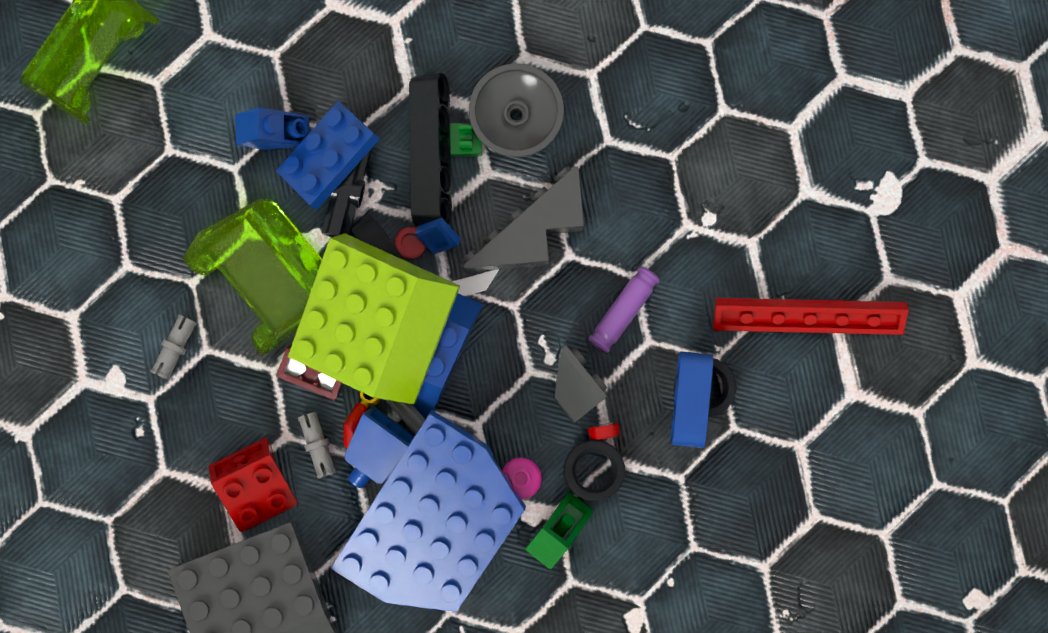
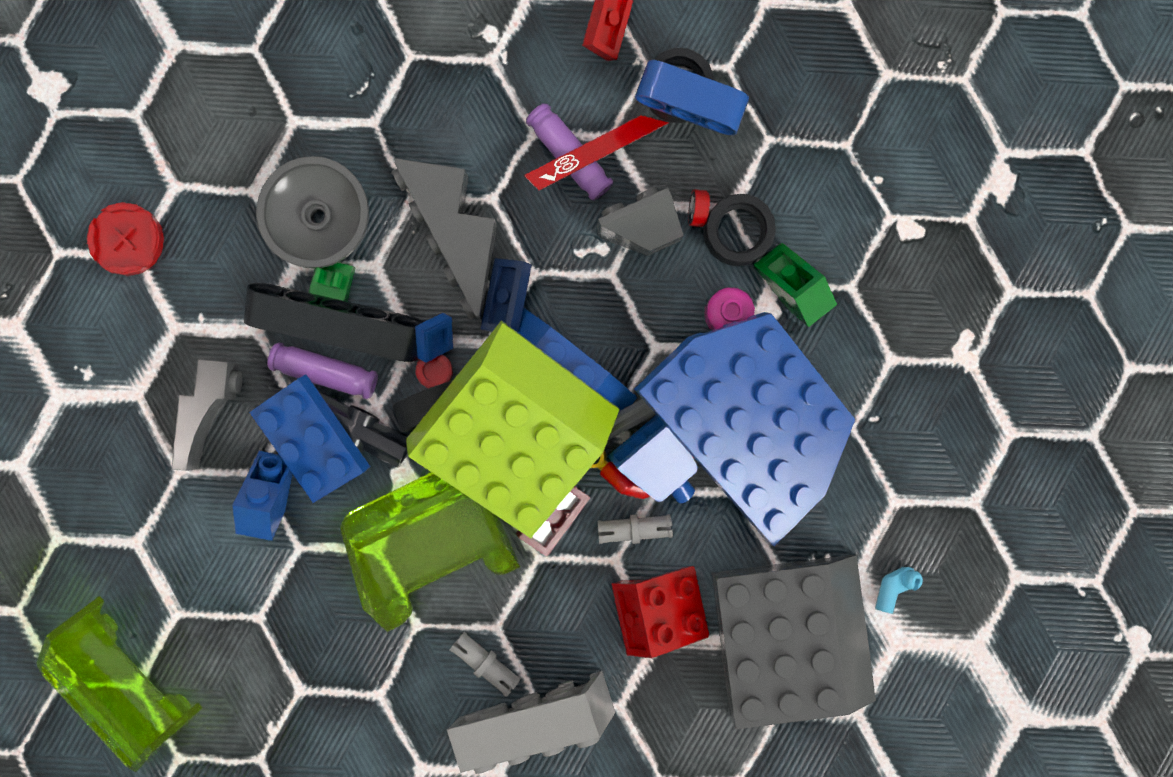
camera: 75 degrees left, 5 degrees up
(131, 399) = (532, 726): none -> light grey wedge
(354, 67) = (214, 386): none -> slope
(388, 151) = (322, 370): none -> medium lavender axle
(487, 287) = (506, 294): none -> dark blue plate
(628, 329) = (593, 151): none -> red sticker

